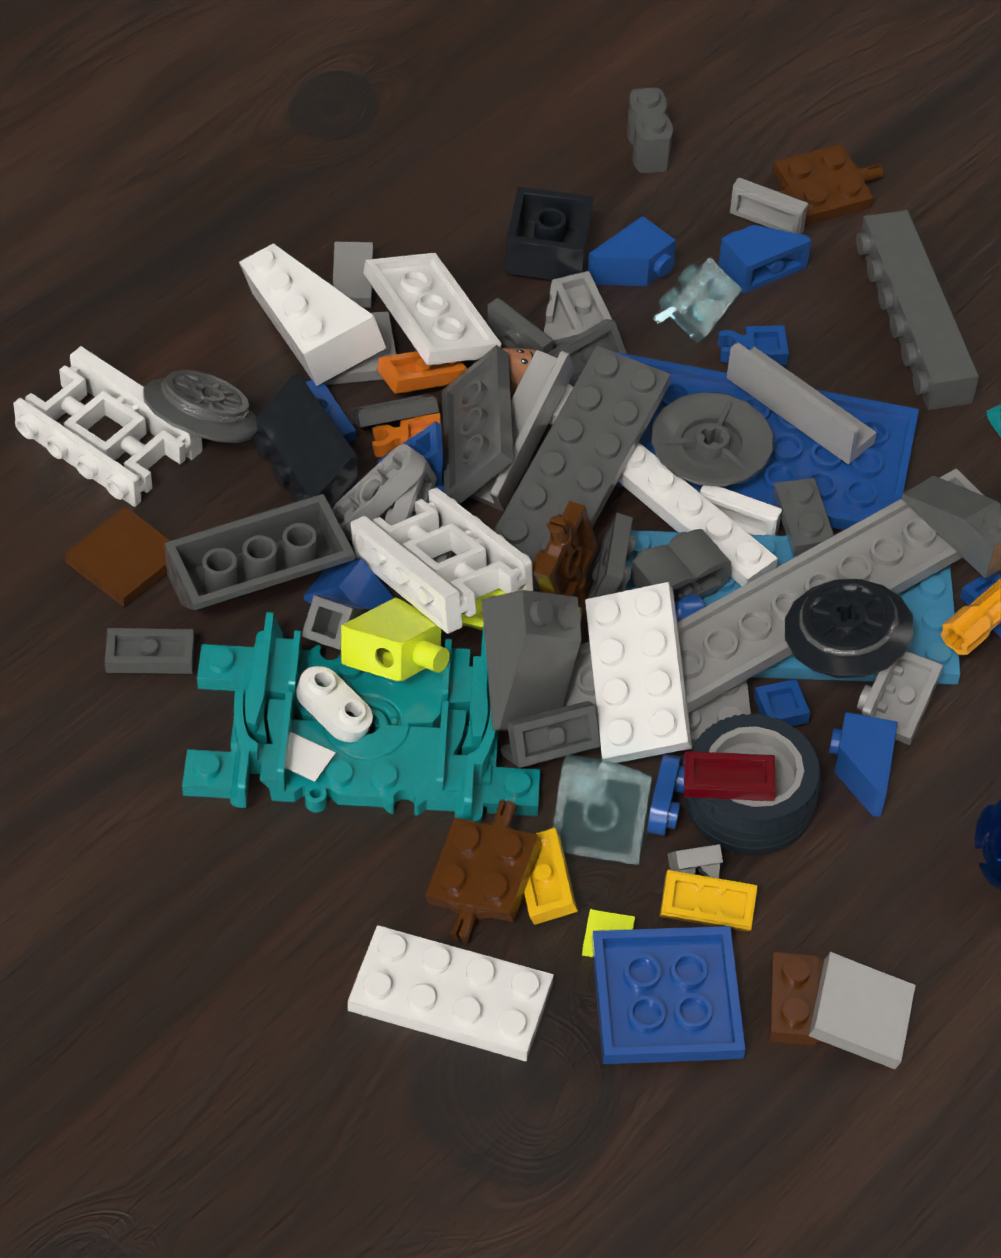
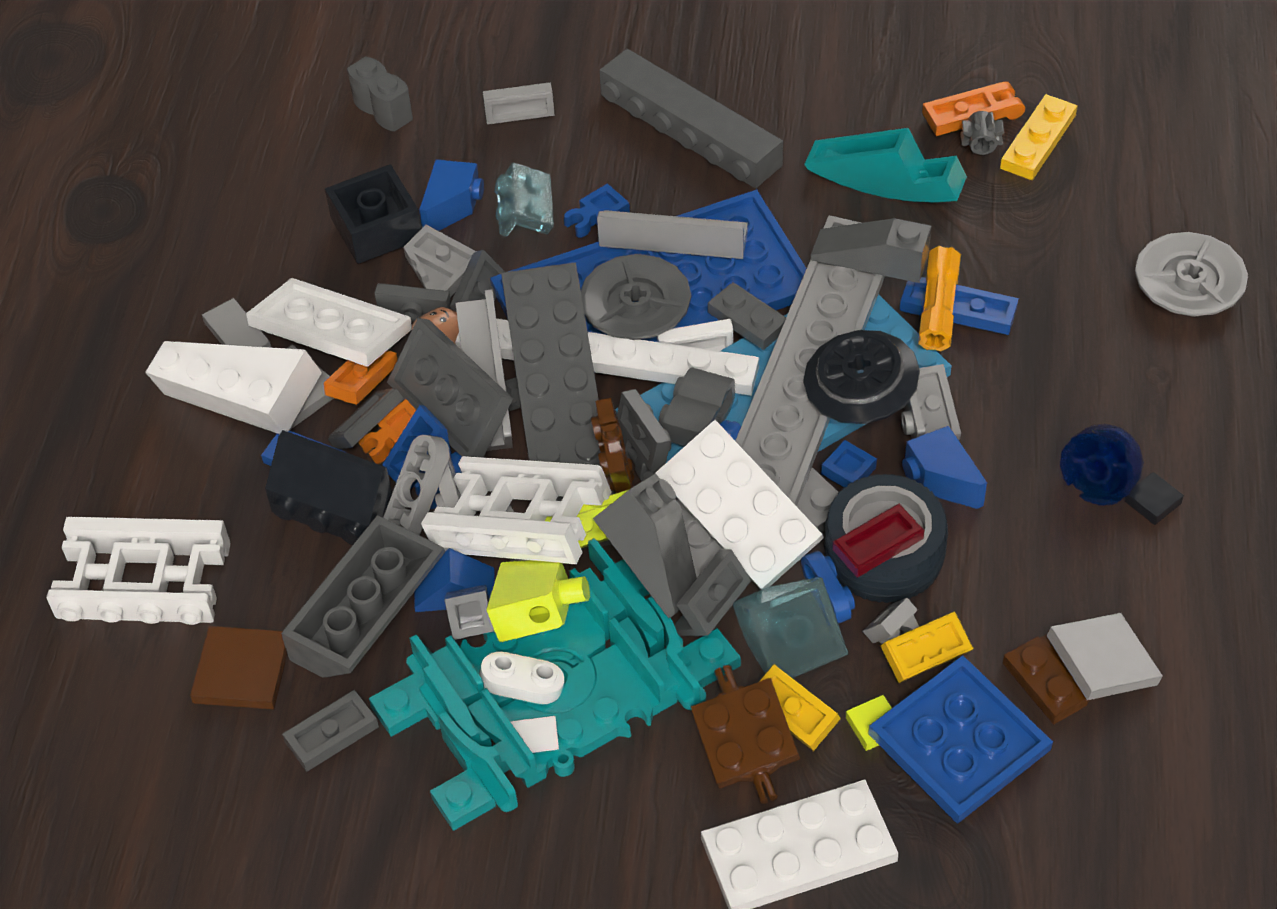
camera: 30 degrees left, 0 degrees up
(201, 406) = (210, 505): dark grey piece -> none
(762, 255) = (544, 140): blue slope -> none
(826, 182) = (542, 60): reddish brown plate -> none

